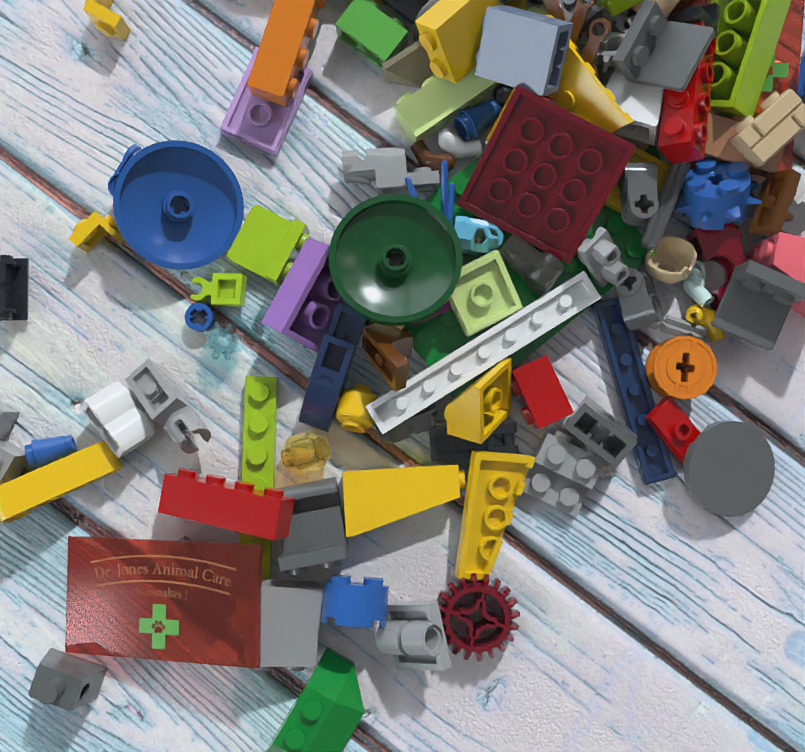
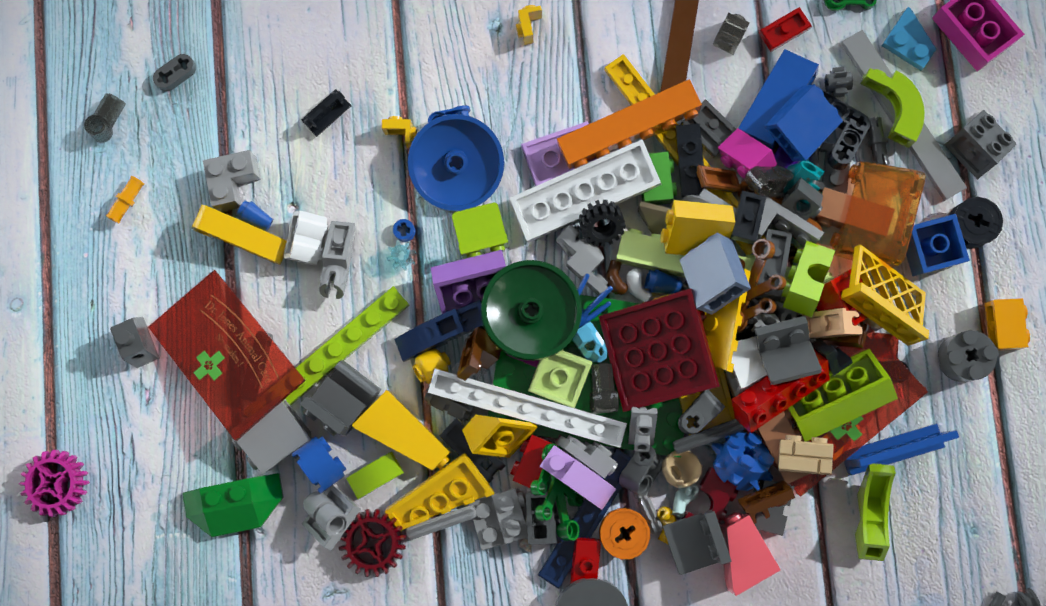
camera: 55 degrees right, 5 degrees down
(224, 290) = (432, 229): lime plate -> none
(227, 504) = (310, 341): red brick -> none
(306, 452) = (380, 359): clear yellow head -> none
(323, 105) = (562, 199): none -> white plate
(356, 115) = (597, 213): none -> black tyre
(413, 556) = (374, 475): none -> lime slope
(516, 531) = (441, 522): none -> light grey axle
(572, 376) = (567, 529): none -> green plant
(582, 332) = (591, 455): none -> light grey plate
(595, 362) = (578, 477): none -> lavender arch

